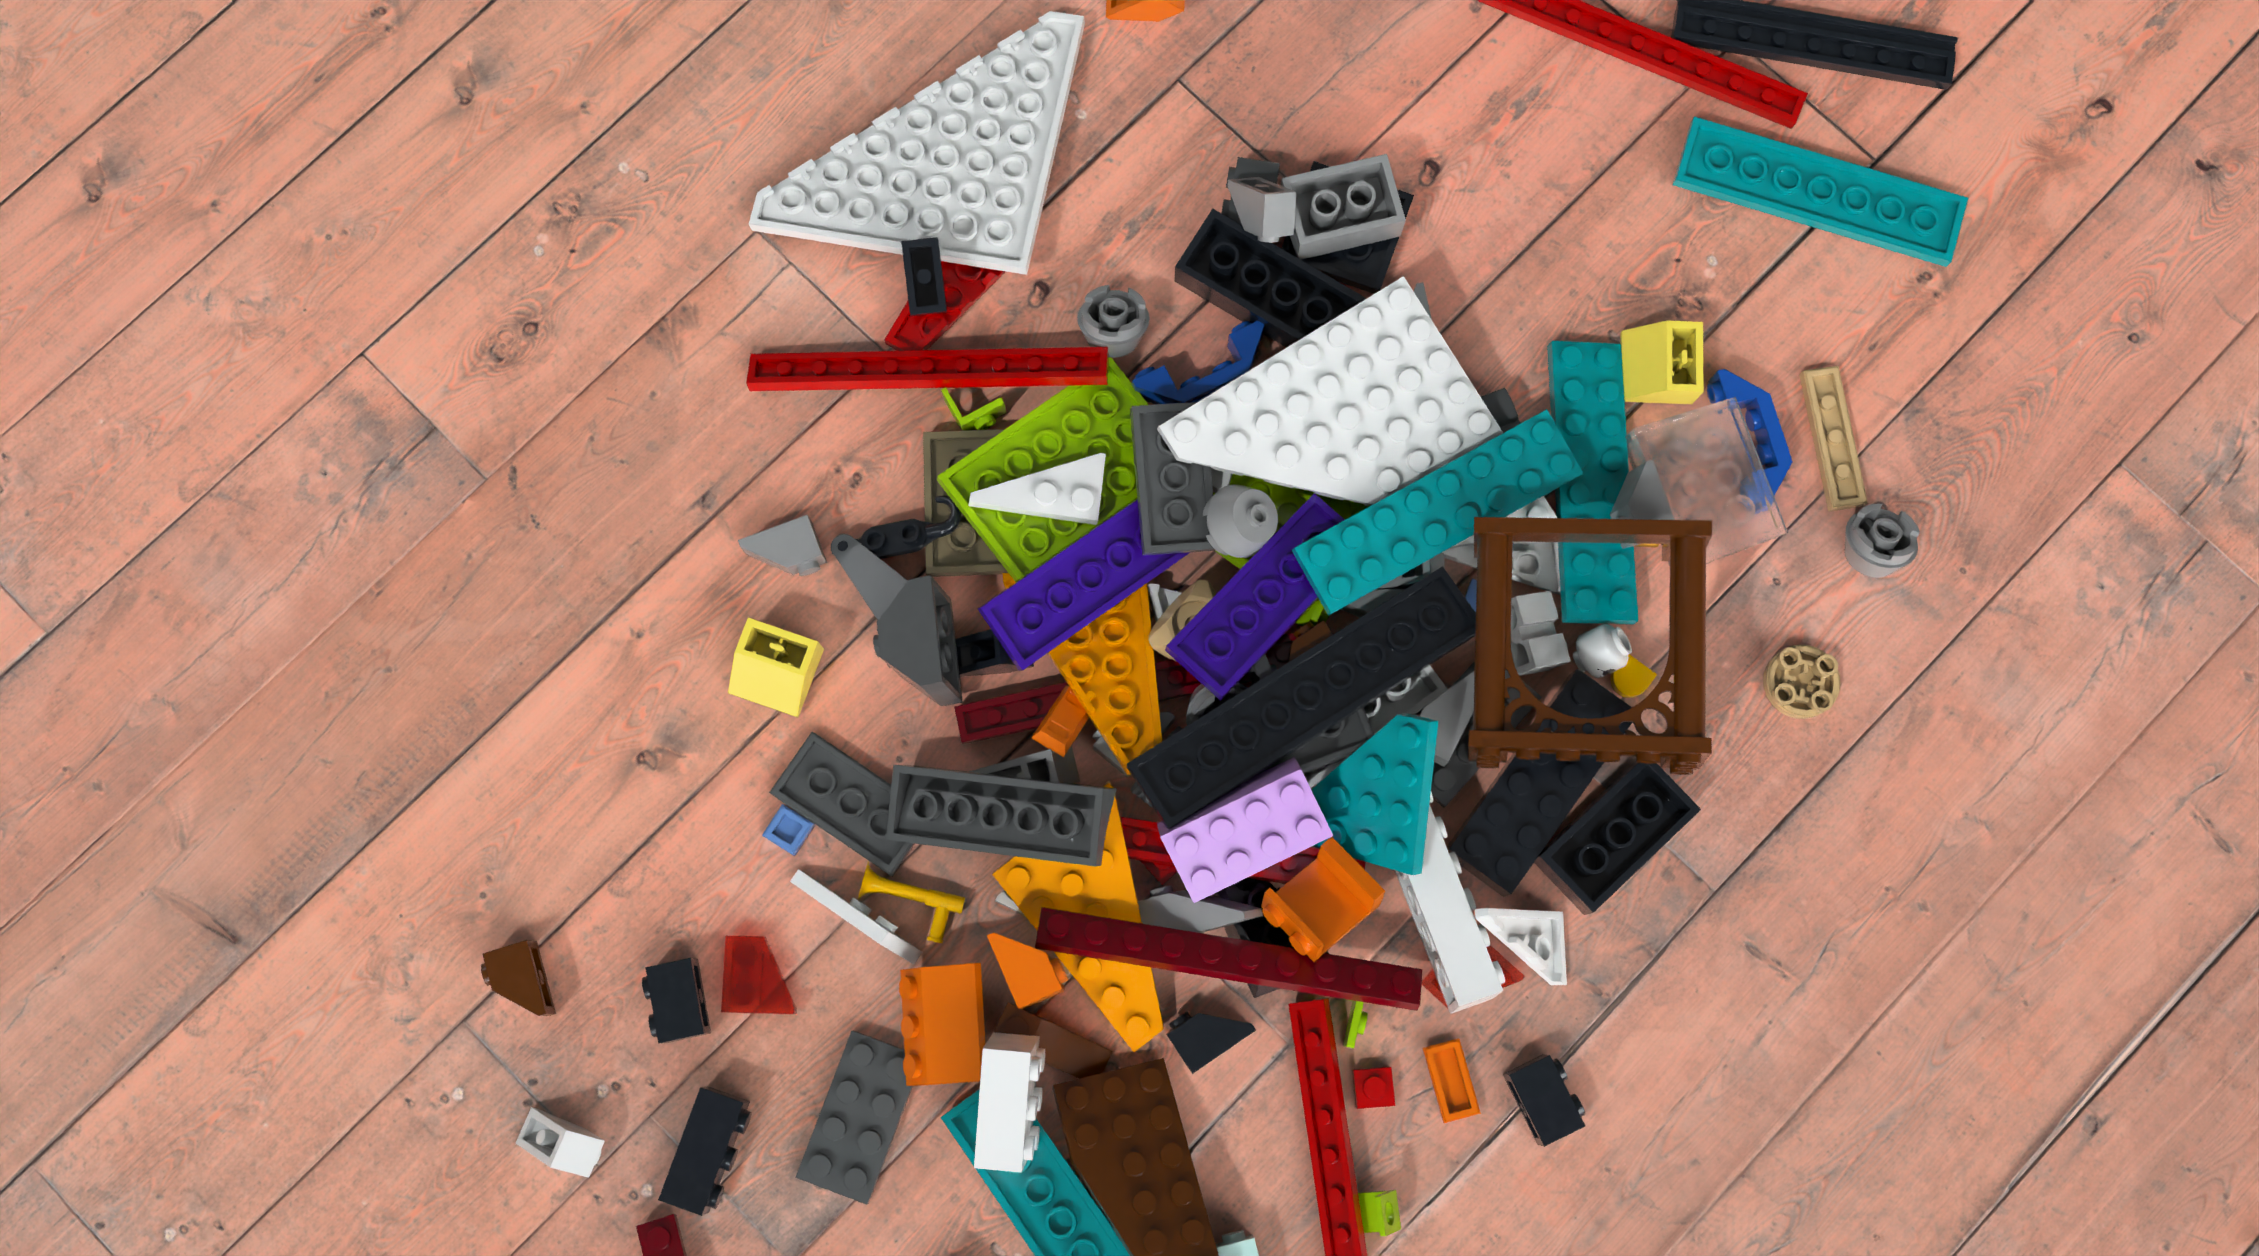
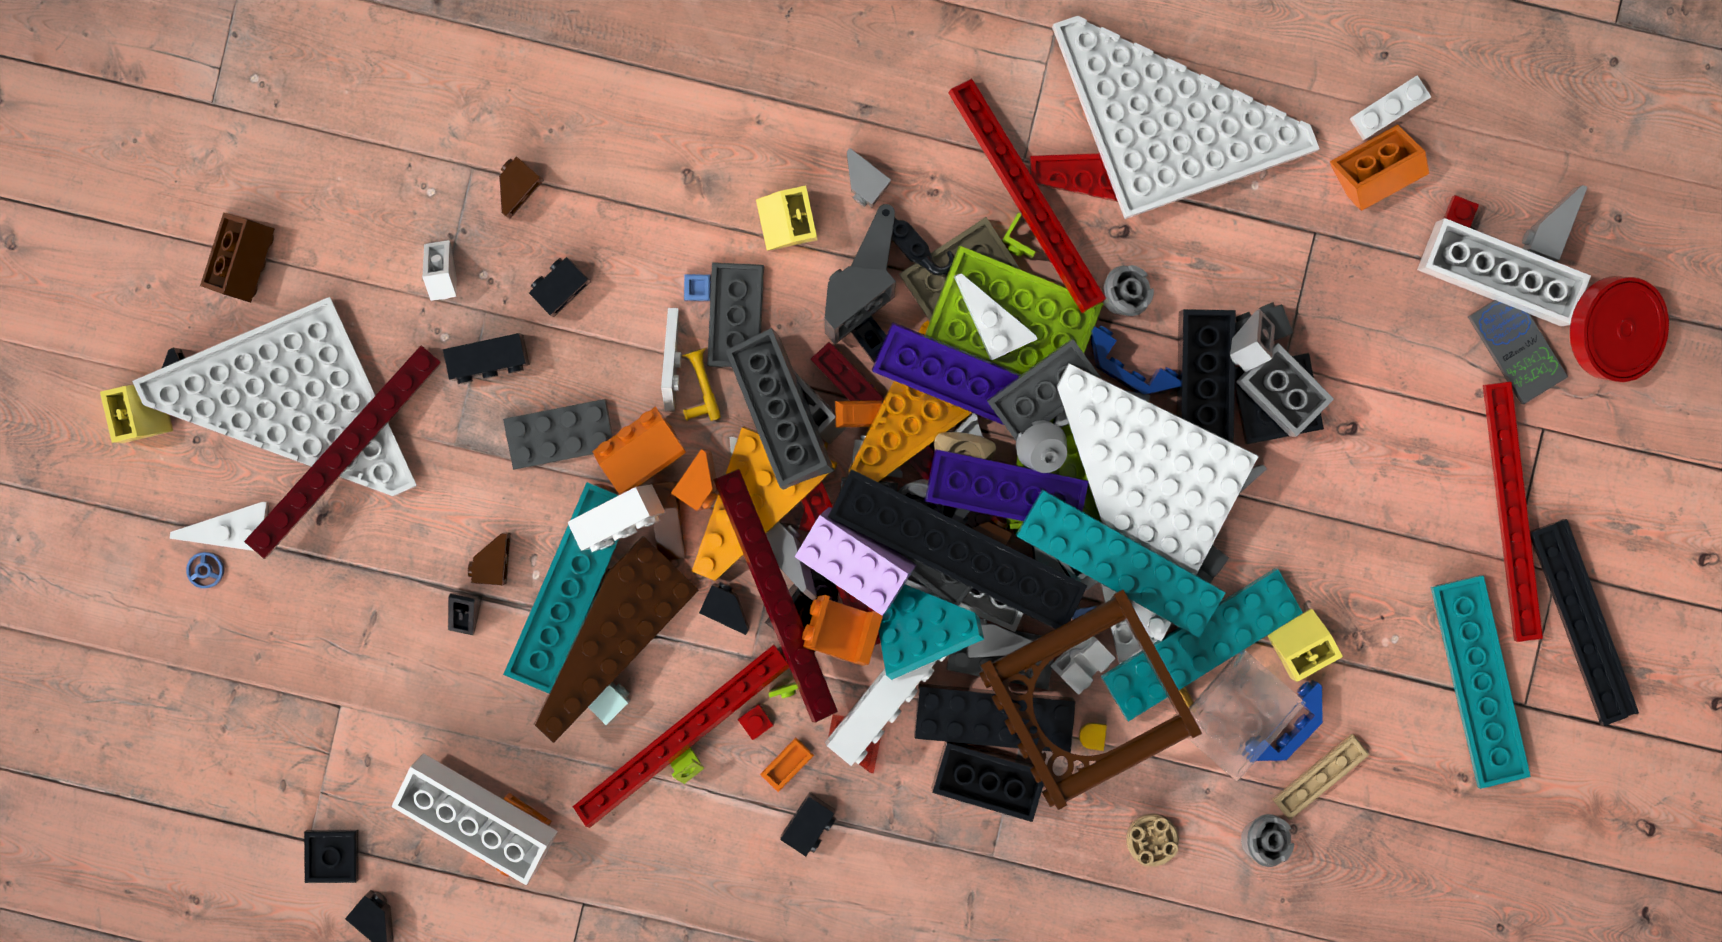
camera: 60 degrees right, 10 degrees up
(753, 978) = (599, 323): clear red wing -> none
(924, 276) = (1081, 158): black brick -> none
(1532, 936) = (897, 764): white wing -> none
(1602, 650) = (1097, 710): white head -> none
(1642, 497) = (1200, 684): light grey slope -> none

